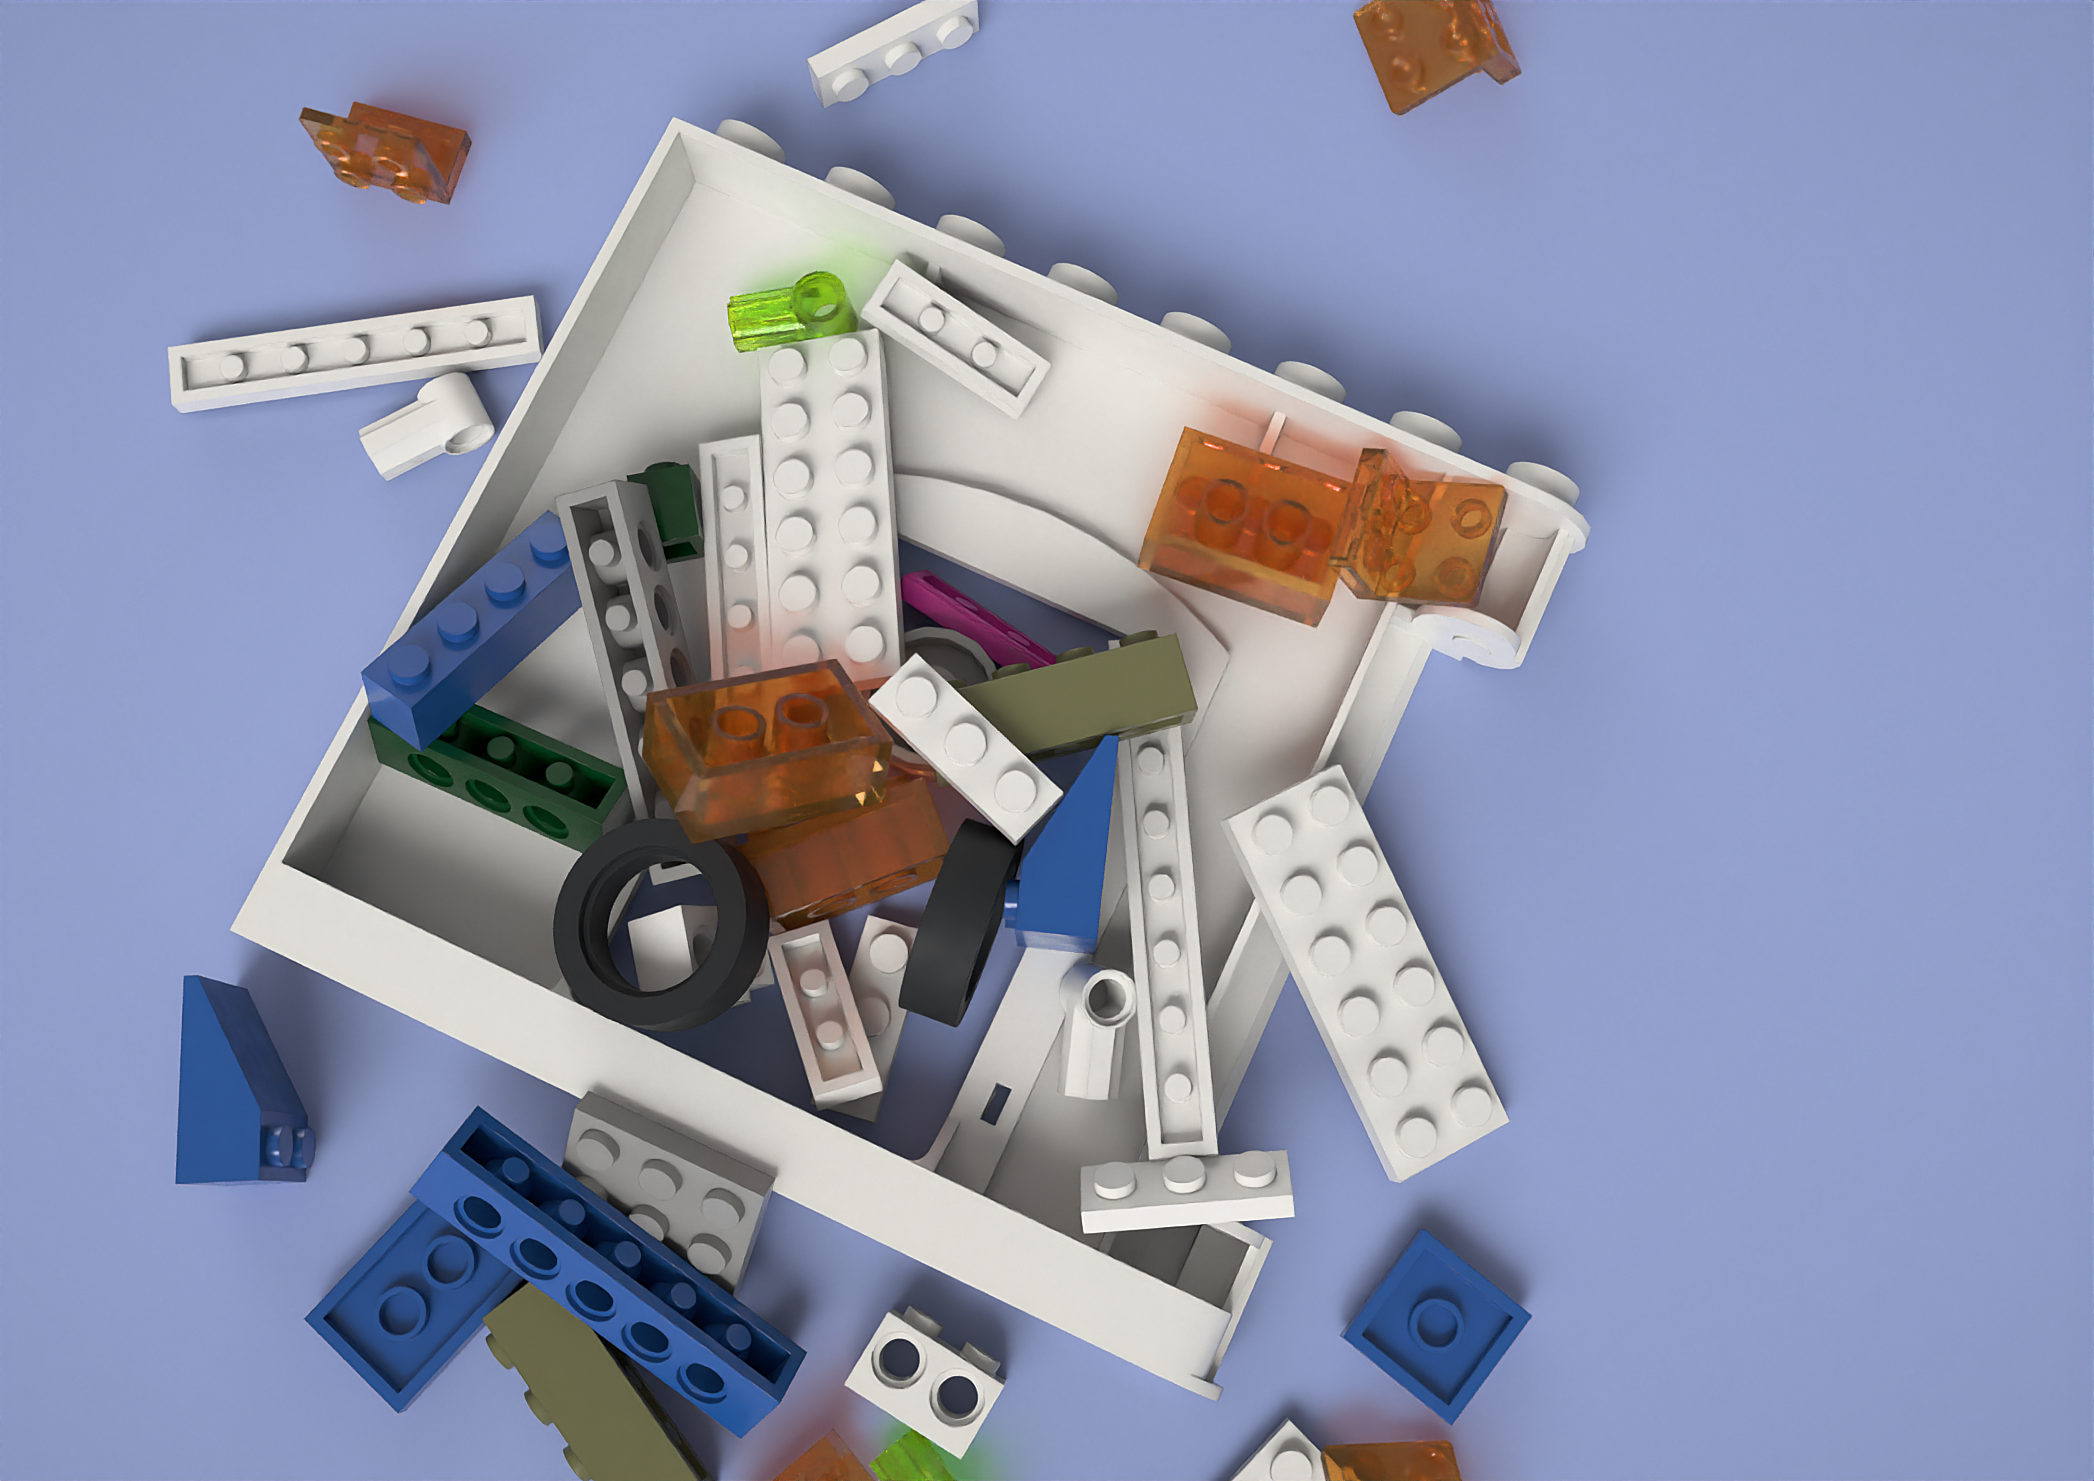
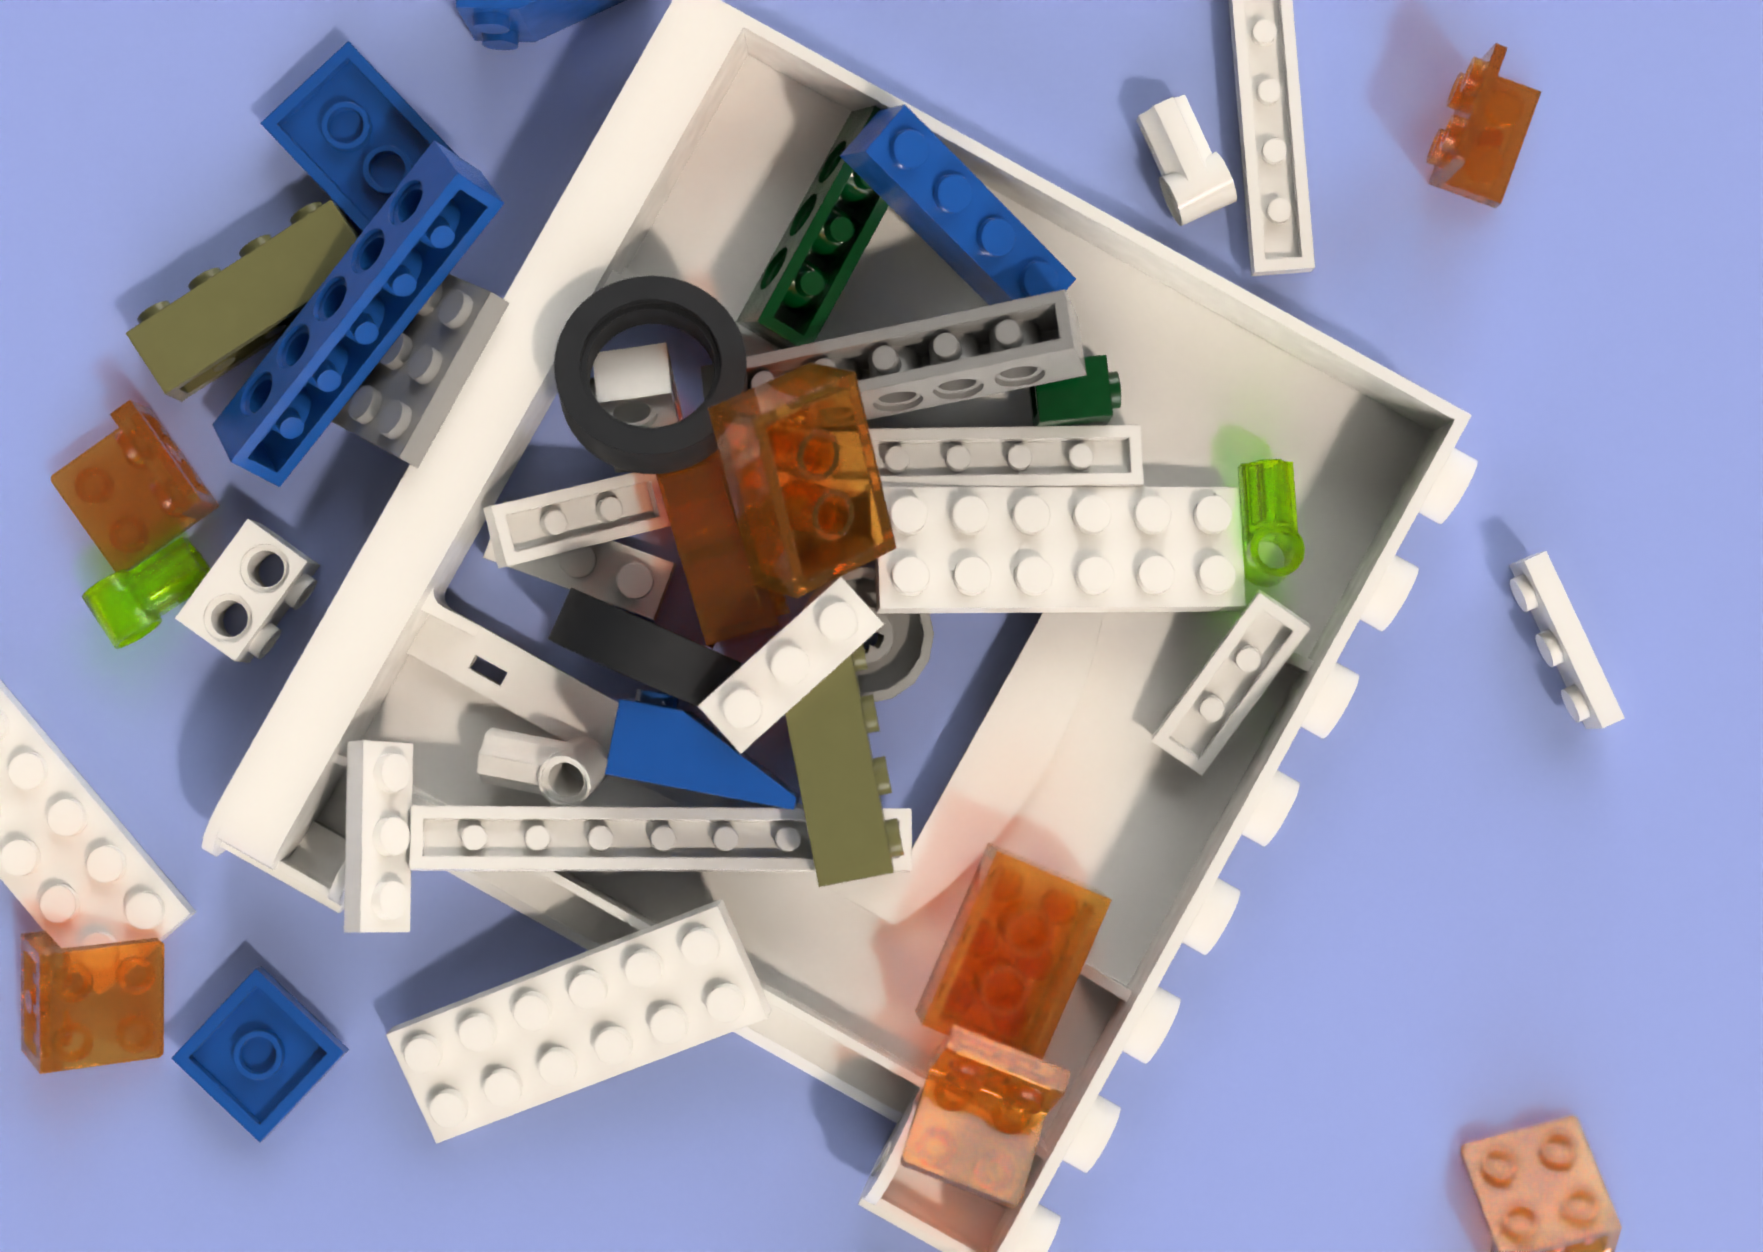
camera: 90 degrees right, 10 degrees up
(961, 613) = (938, 690): dark pink tile -> none

